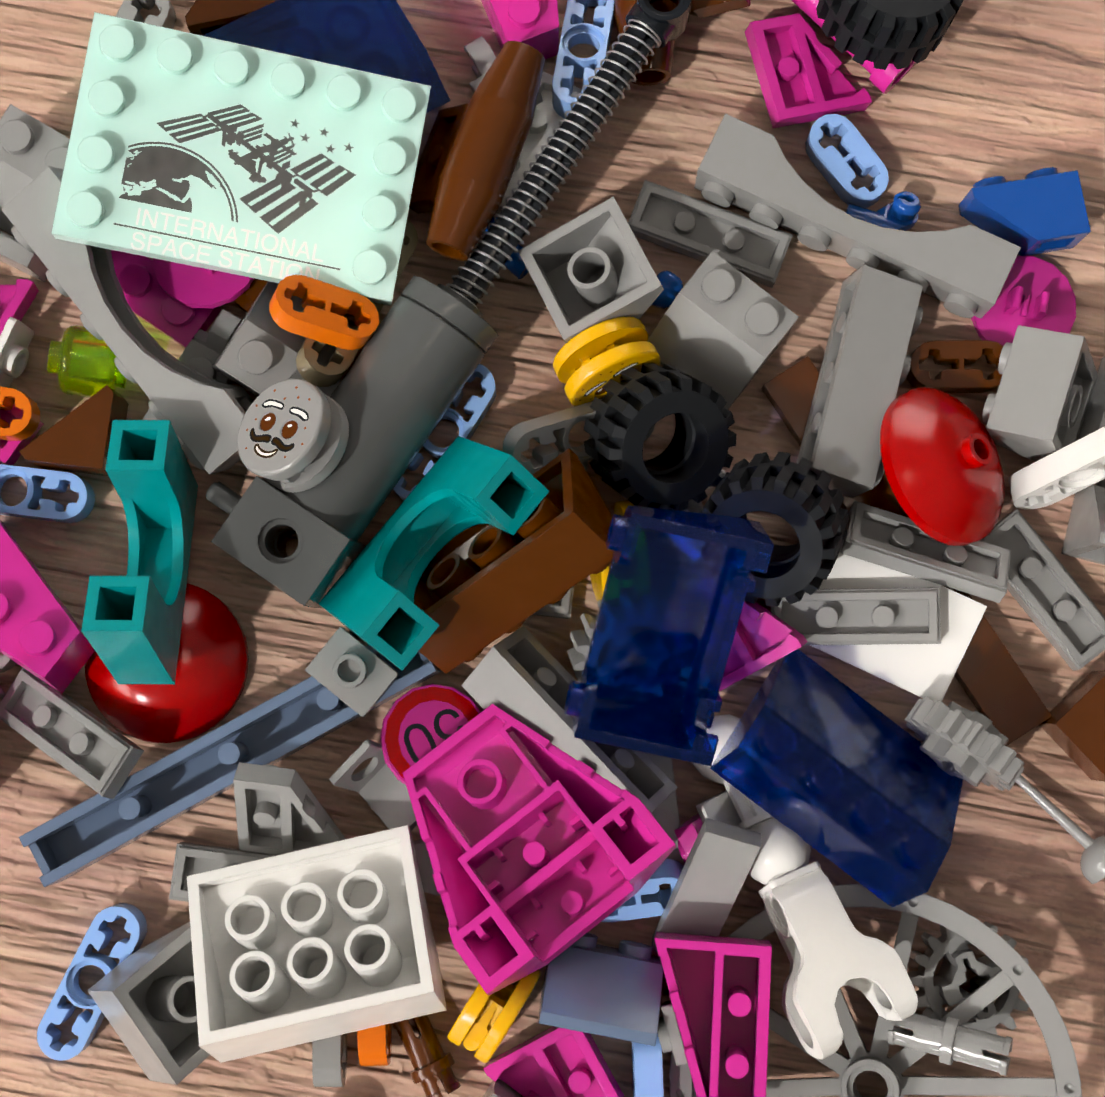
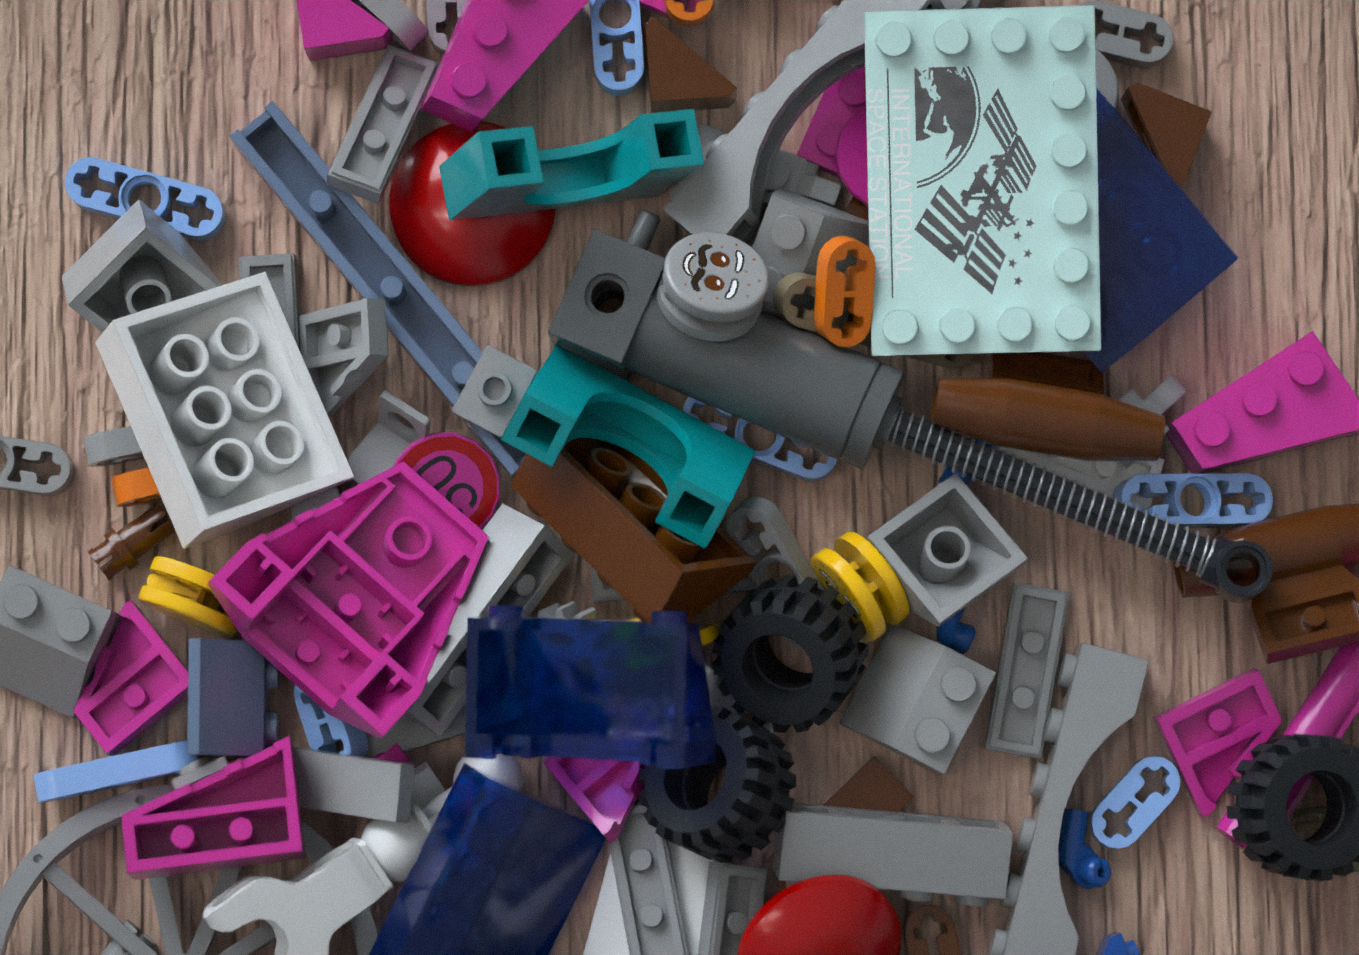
camera: 75 degrees right, 0 degrees up
(83, 363) = (755, 57): clear neon green head -> none

